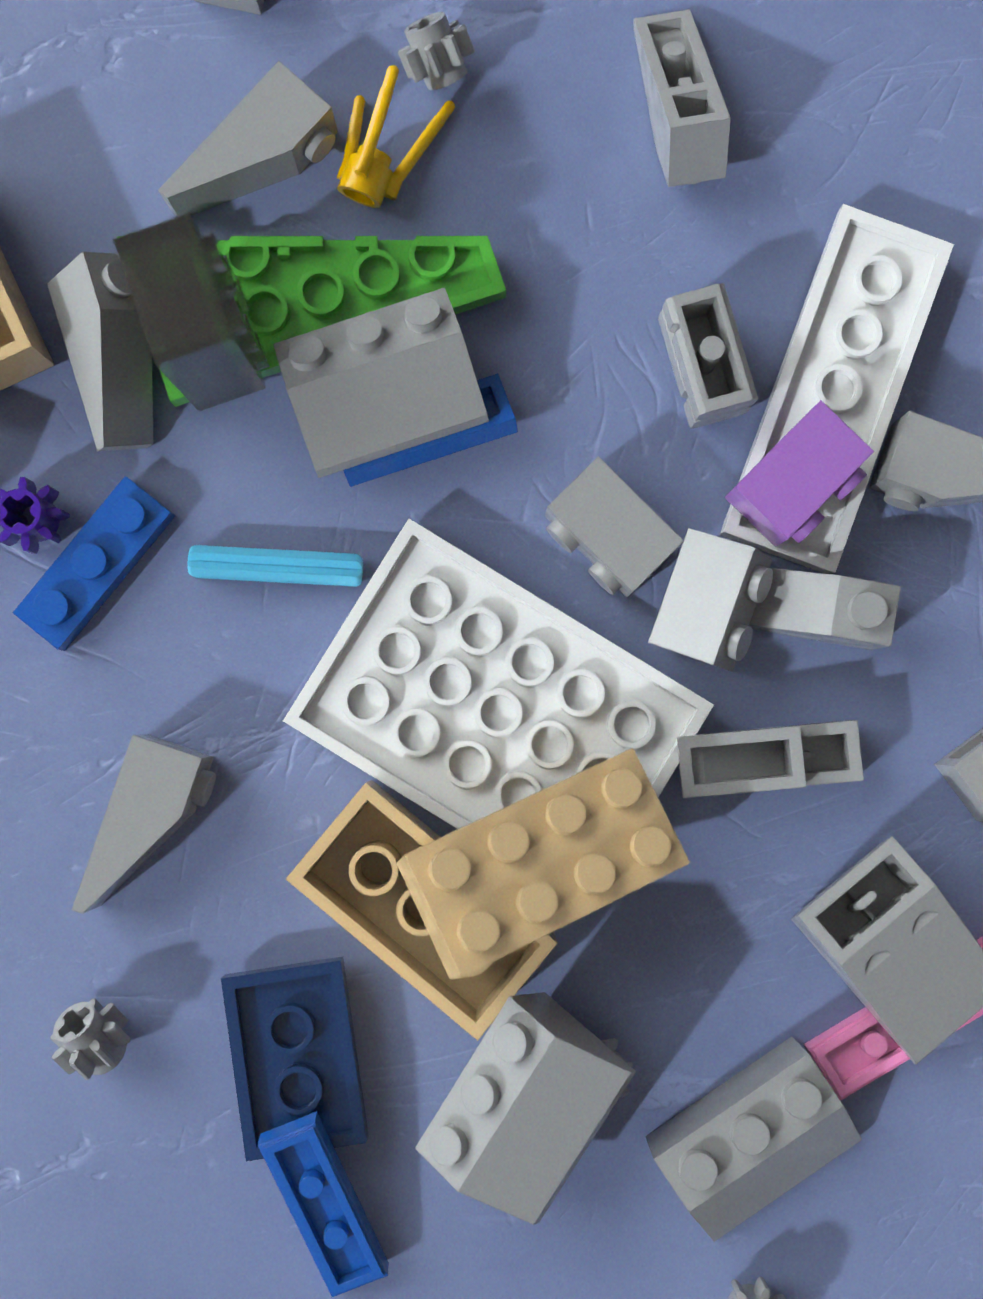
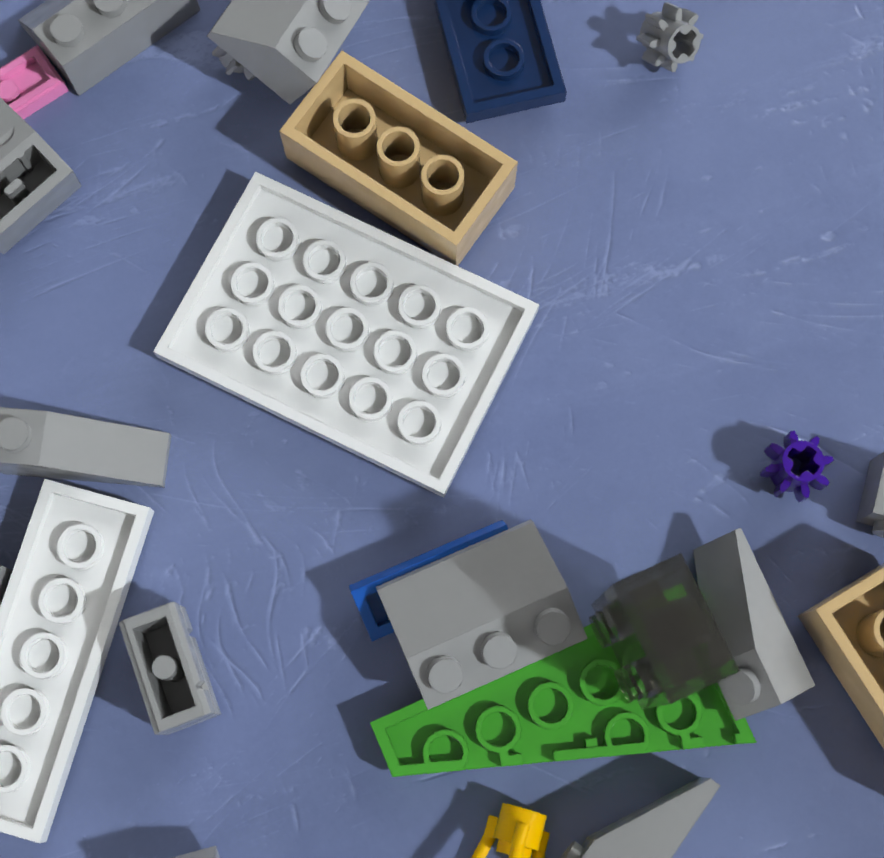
camera: 175 degrees right, 10 degrees down
(94, 564) = (729, 434): blue plate -> none
(148, 804) = (647, 224): light grey slope -> none
(275, 565) = (563, 445): medium azure axle -> none
(541, 863) = (294, 185): tan brick -> none
(611, 529) = (254, 501): light grey brick -> none
(712, 599) = (157, 438): brick -> none
(770, 758) = (100, 310): light grey slope -> none
(799, 475) = (76, 556): medium lavender brick -> none

